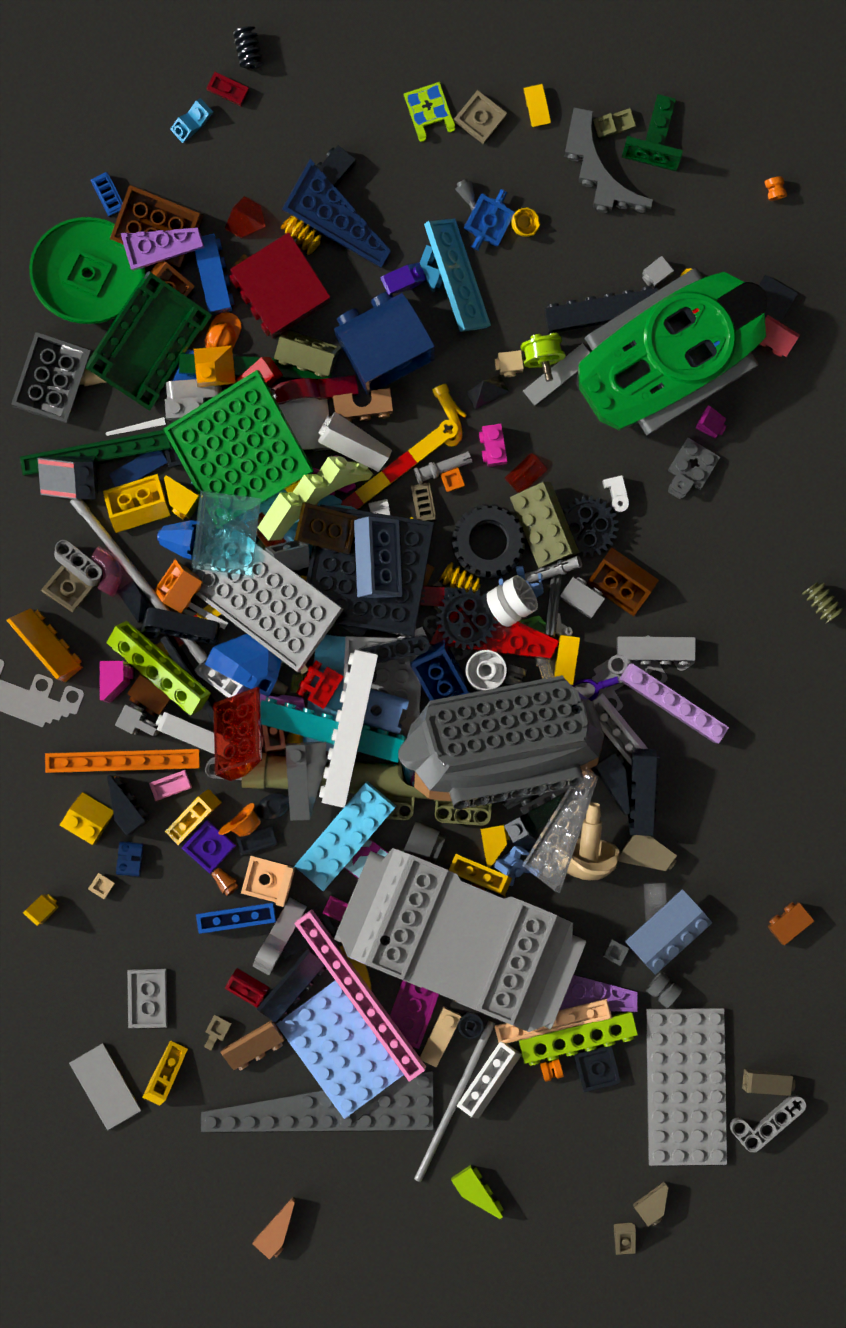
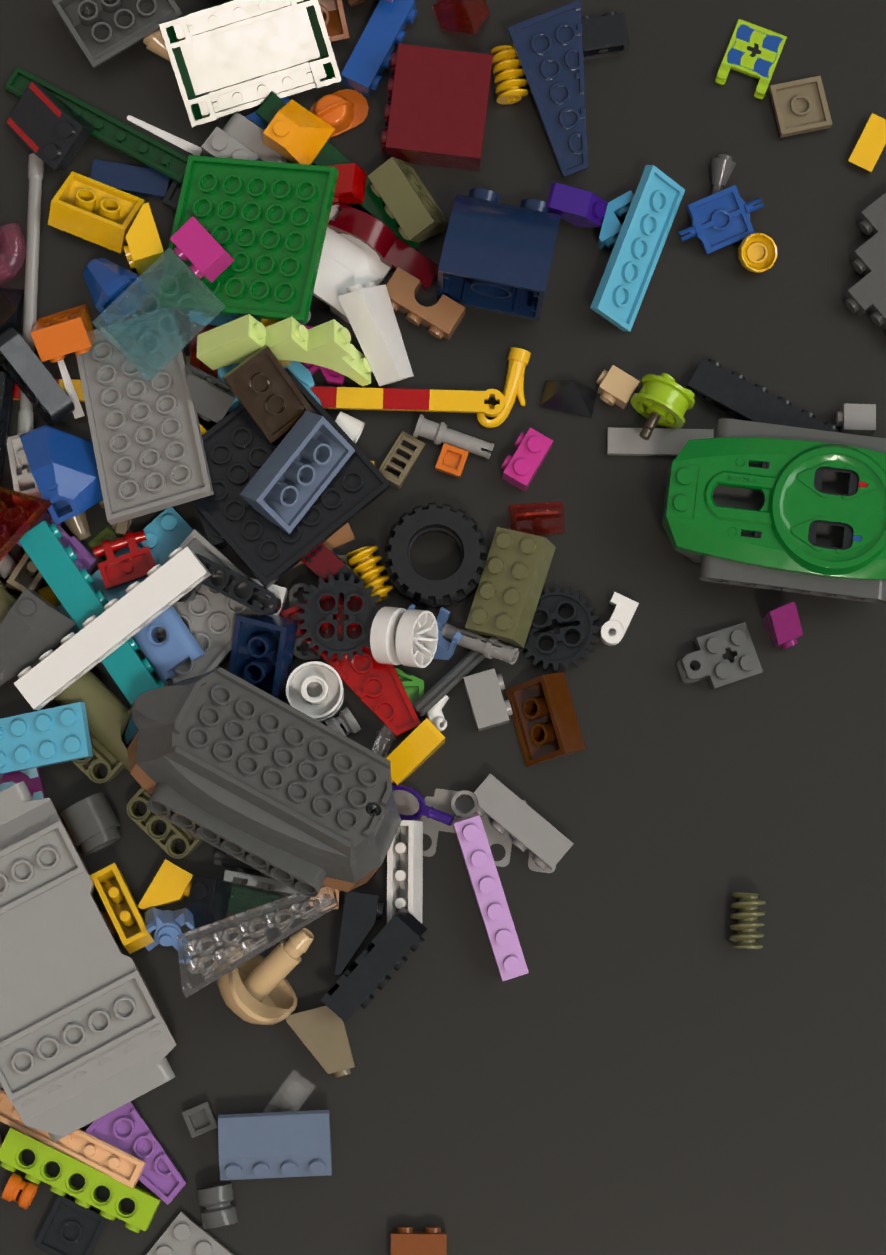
camera: 30 degrees right, 5 degrees down
(220, 477) = (201, 249): none -> dark pink brick

